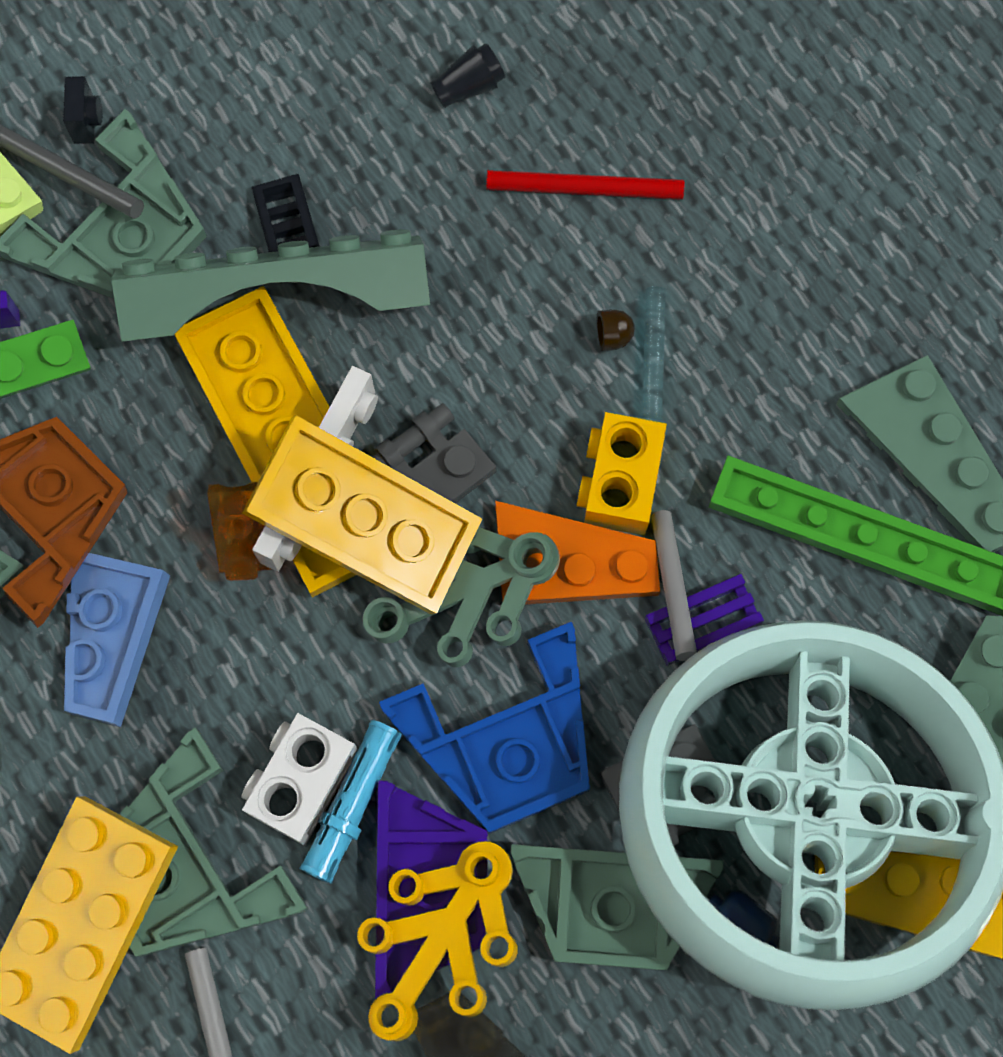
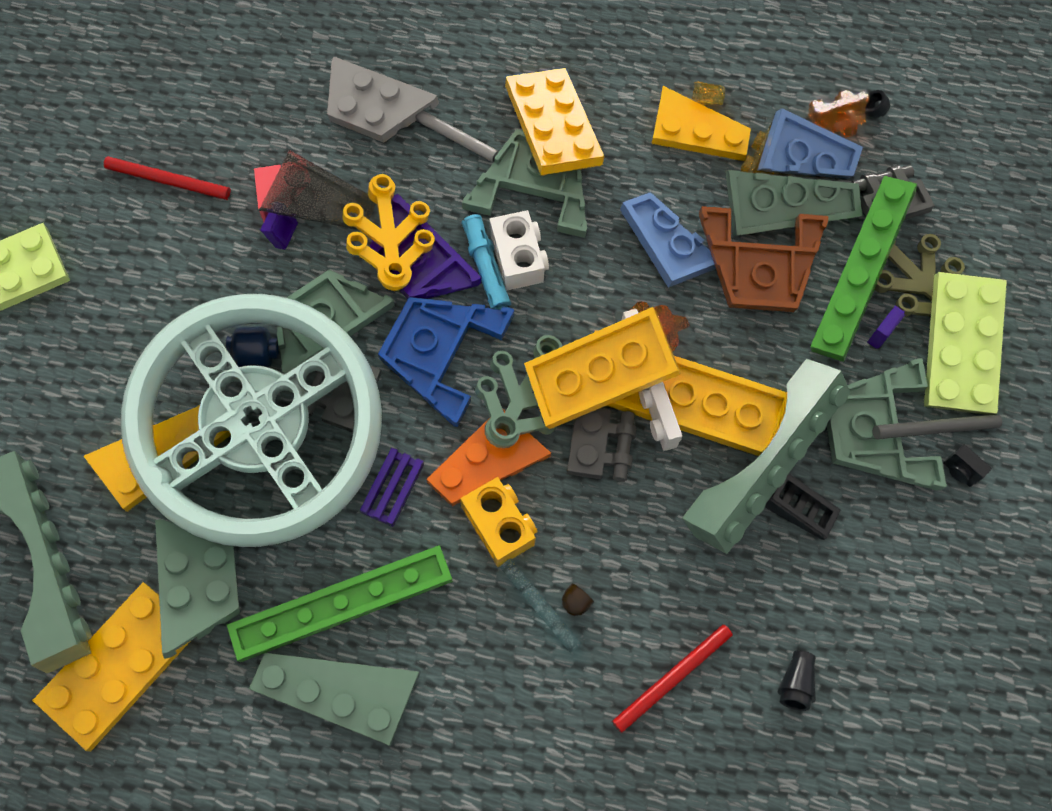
camera: 135 degrees right, 5 degrees down
(673, 585) = (421, 485): light grey bar -> none

